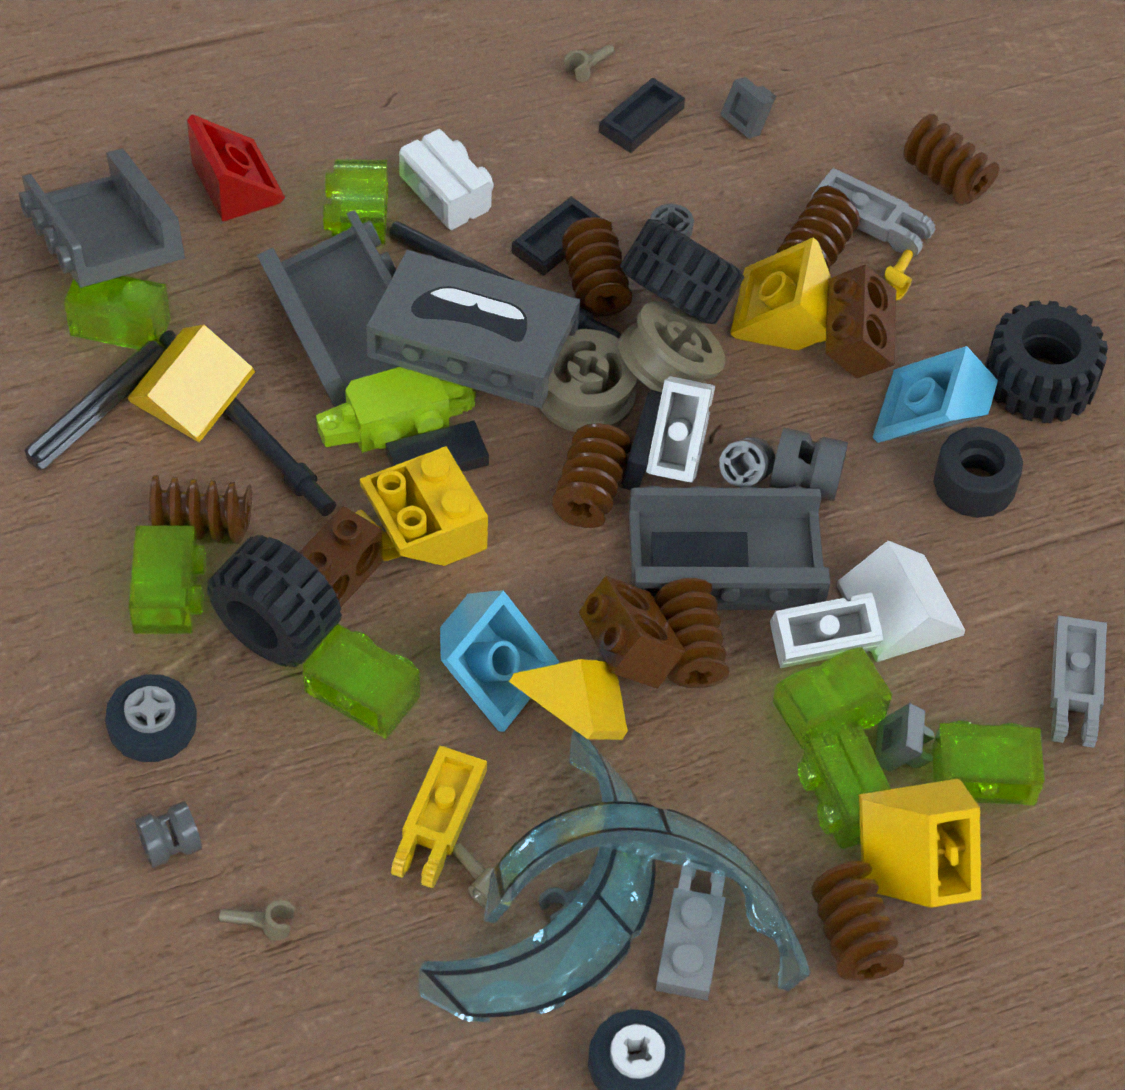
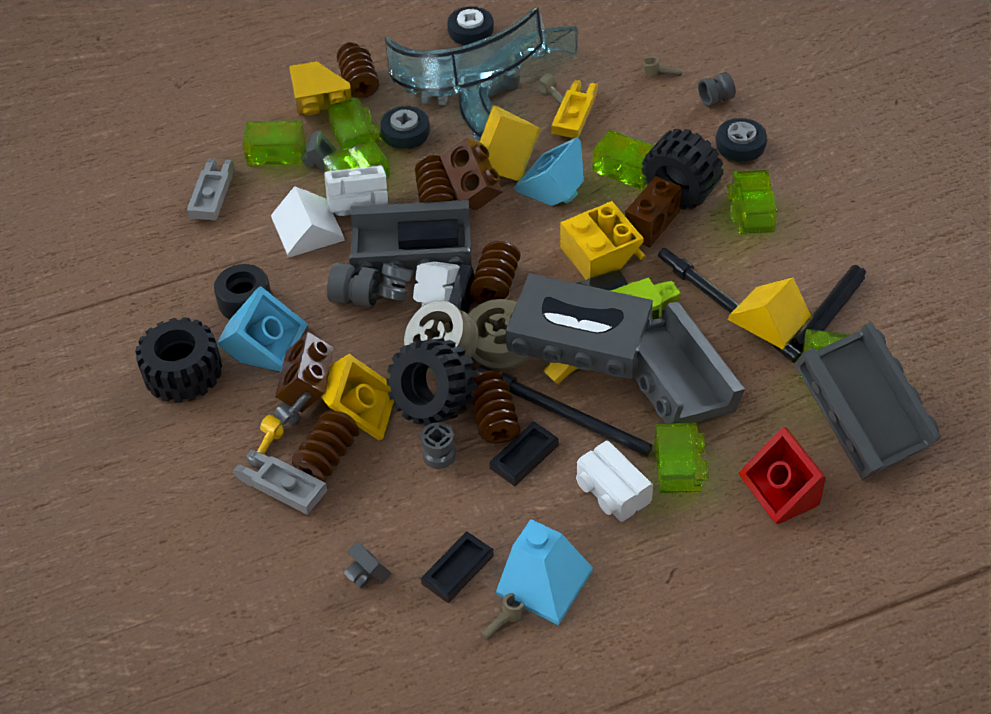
camera: 175 degrees left, 5 degrees down
(201, 509) = (743, 235): reddish brown piece -> none
(538, 98) = (544, 572): none -> medium azure slope
(746, 808) = (405, 127): none -> black wheel
(948, 161) = (209, 518): reddish brown piece -> none

